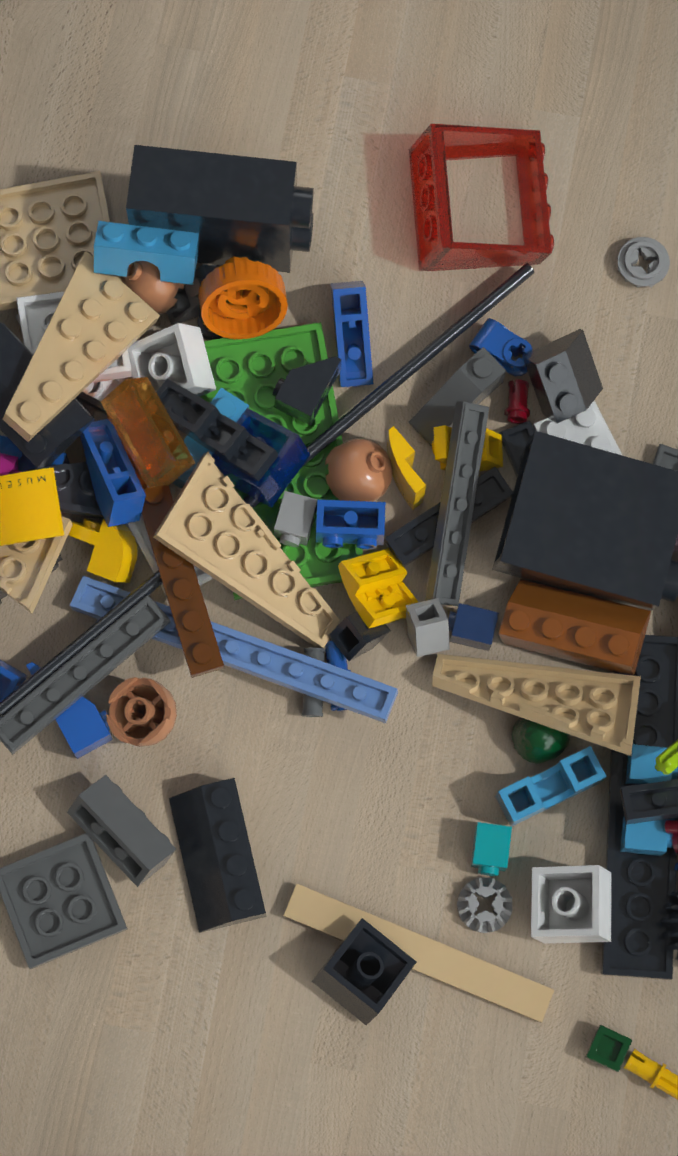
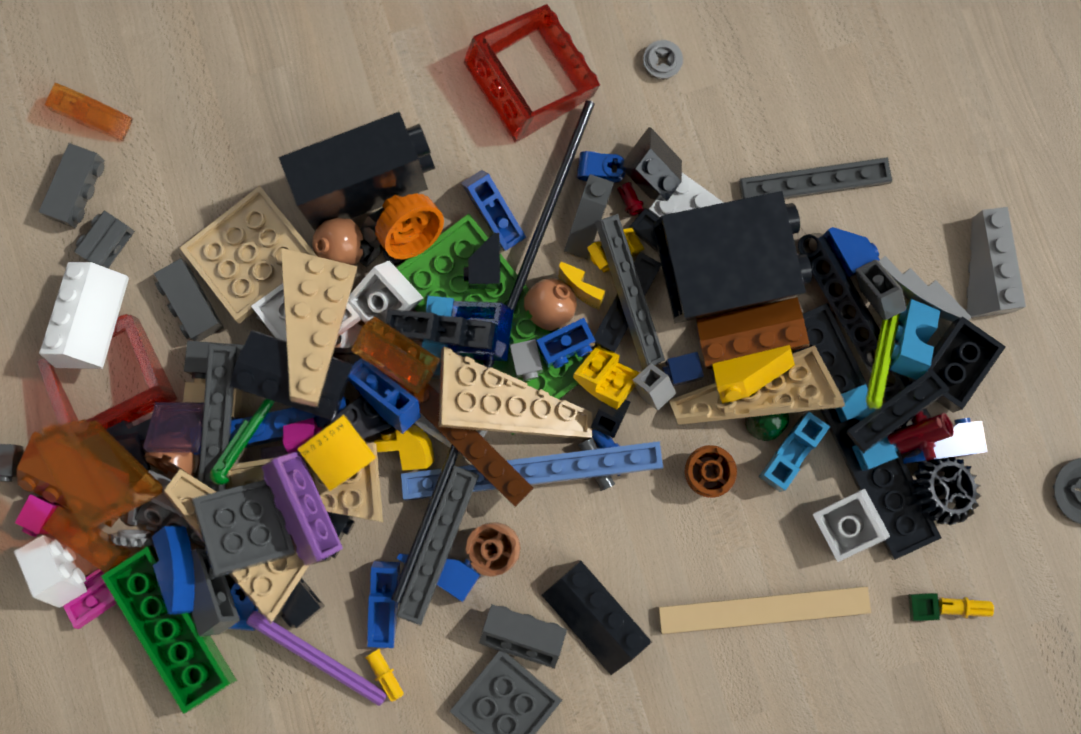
camera: 25 degrees left, 5 degrees up
(169, 250) = (307, 230): dark azure arch -> none
(364, 972) = (738, 644): black slope -> none
(439, 756) = (710, 471): none -> dark orange cone
(485, 921) = (781, 560): light grey gear -> none
(491, 848) = (776, 514): teal brick -> none
(544, 666) = (747, 374): none -> yellow slope

